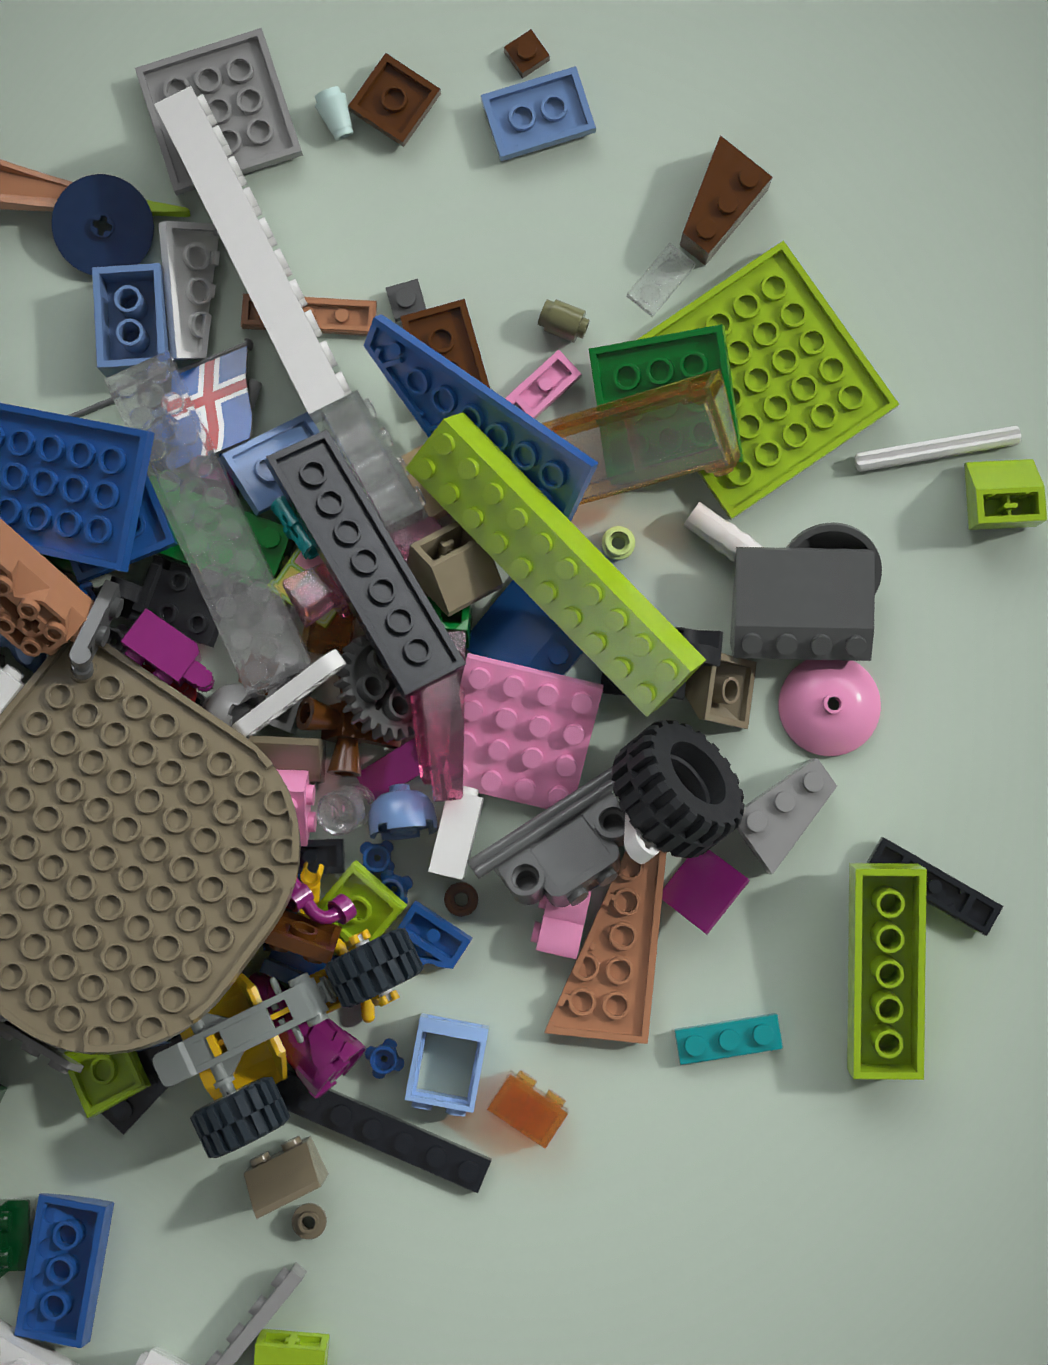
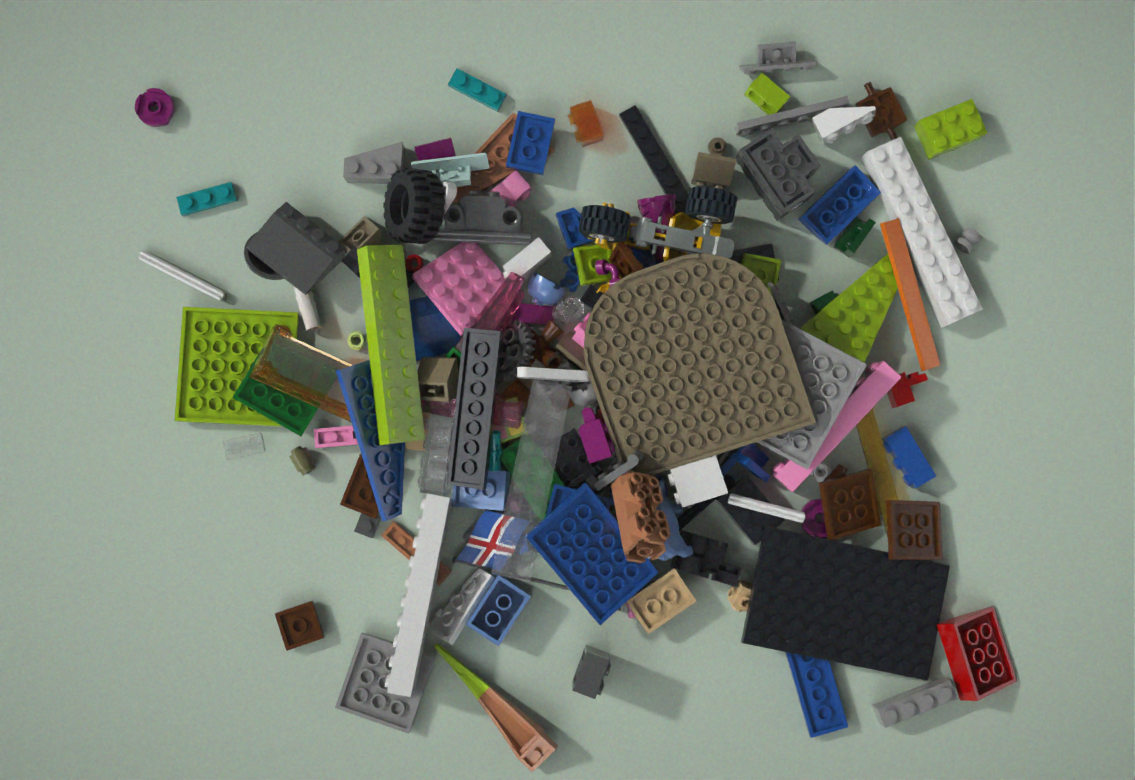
camera: 145 degrees left, 0 degrees up
(88, 202) = (479, 683): dark blue piece -> none
(182, 1249) = (779, 171): none -> dark grey piece
(334, 111) = (331, 640): light aqua cone -> none
(382, 1068) = (638, 188): blue plate -> none
(450, 1027) = (592, 181): light blue window -> none
(453, 907) = (547, 229): reddish brown plate -> none
(526, 53) = (221, 601): reddish brown plate -> none
(538, 113) = (238, 567): medium blue plate -> none
(584, 1015) = (530, 143): none -> blue plate
(613, 720) = (410, 259): none -> red plate
(665, 886) = (454, 169): none -> light aqua bracket
(723, 201) = (186, 461): reddish brown wedge -> none
(810, 720) = (333, 200): bright pink dish -> none
(886, 971) = (385, 65): lime brick -> none
(944, 890) = (337, 87): black plate -> none
(990, 583) = (206, 199): none -> teal plate
(1004, 494) = (168, 232): lime slope -> none

